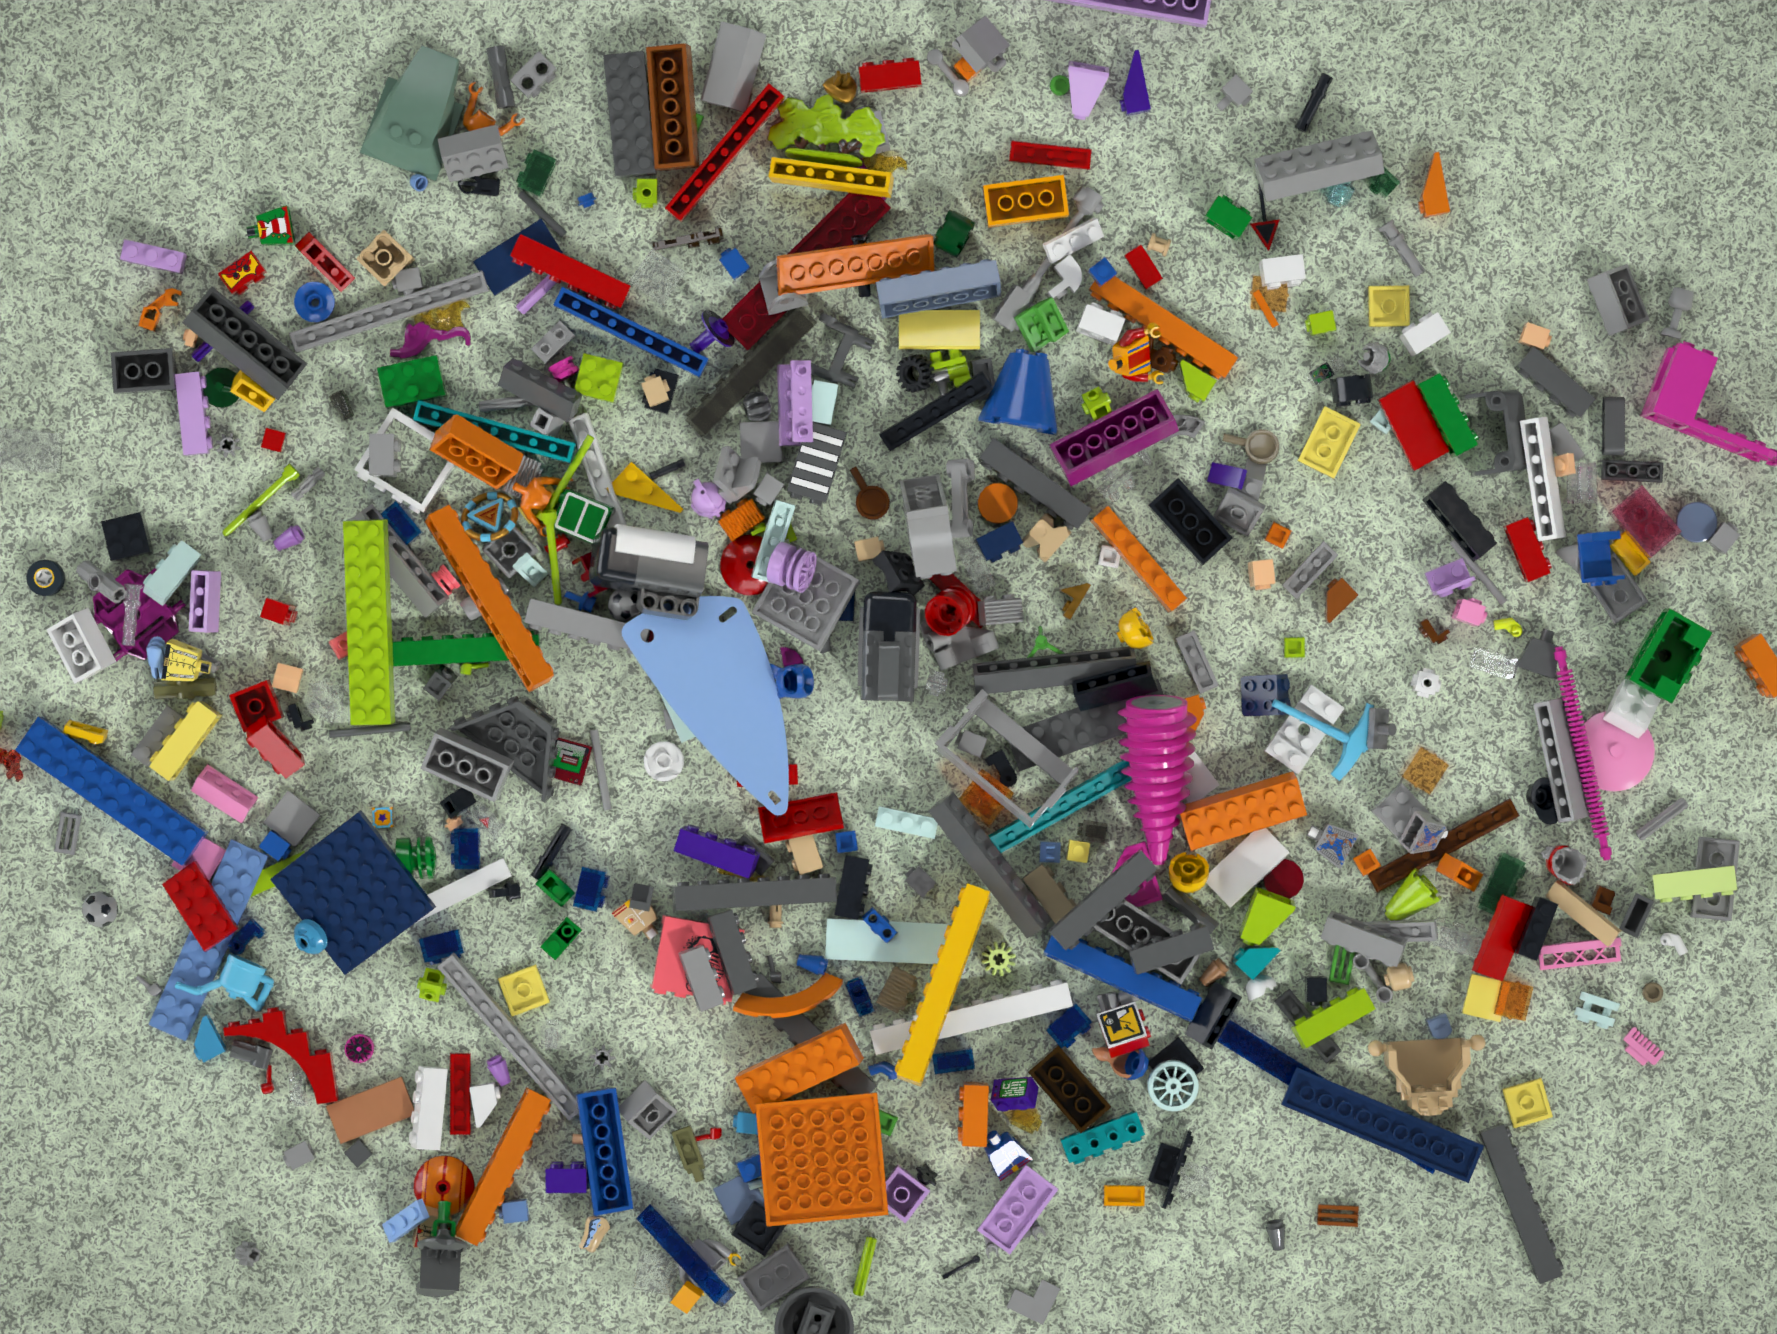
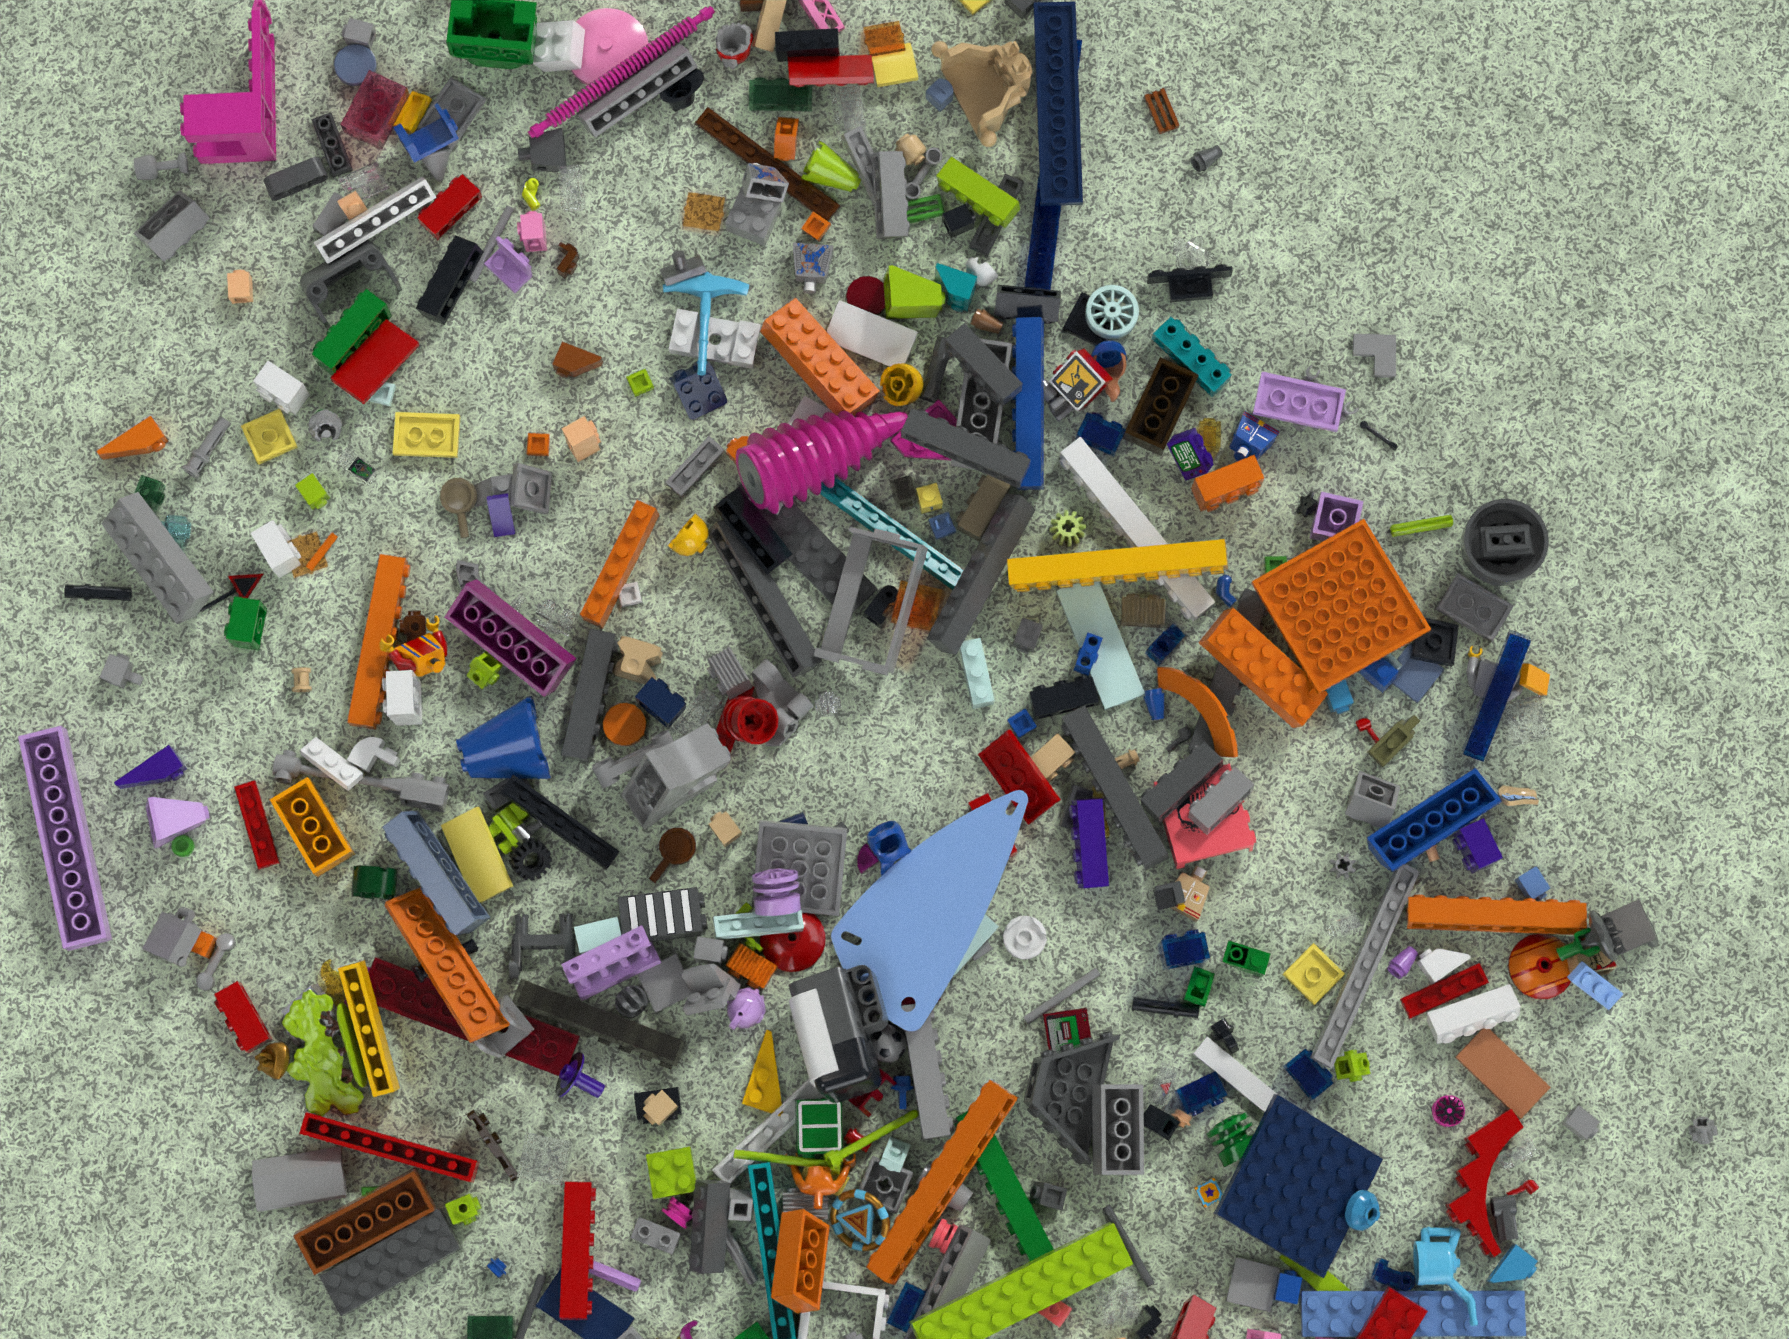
camera: 115 degrees left, 10 degrees down
(358, 1153) = (1550, 1065): dark grey tile -> none
(467, 668) = (1022, 1175): lime hand -> none
(631, 332) = (611, 1161): blue brick -> none
(667, 469) = (735, 1065): black wheel -> none
(733, 263) = (497, 1089): blue brick -> none
(888, 646) = (813, 764): piece -> none
(898, 572) = (734, 786): black brick -> none
(953, 1060) = (1184, 524): clear blue brick -> none
(970, 743) = (871, 645): light grey brick -> none
(1041, 324) = (428, 758): bright green slope -> none
(1042, 643) = (743, 618): bright green plant -> none
(1077, 593) = (679, 607): pearl gold slope -> none
(1102, 272) = (350, 718): blue brick -> none
(1124, 1195) = (1237, 313): light orange tile -> none
(1143, 267) = (330, 686): red tile -> none
(1189, 521) = (561, 530): black brick -> none
(1196, 381) = (421, 585): lime slope -> none
(1310, 570) = (558, 399): light grey plate -> none
(1351, 389) = (364, 433): black brick -> none
(1418, 683) = (619, 251): white brick -> none
(1555, 382) = (277, 249): dark grey brick -> none

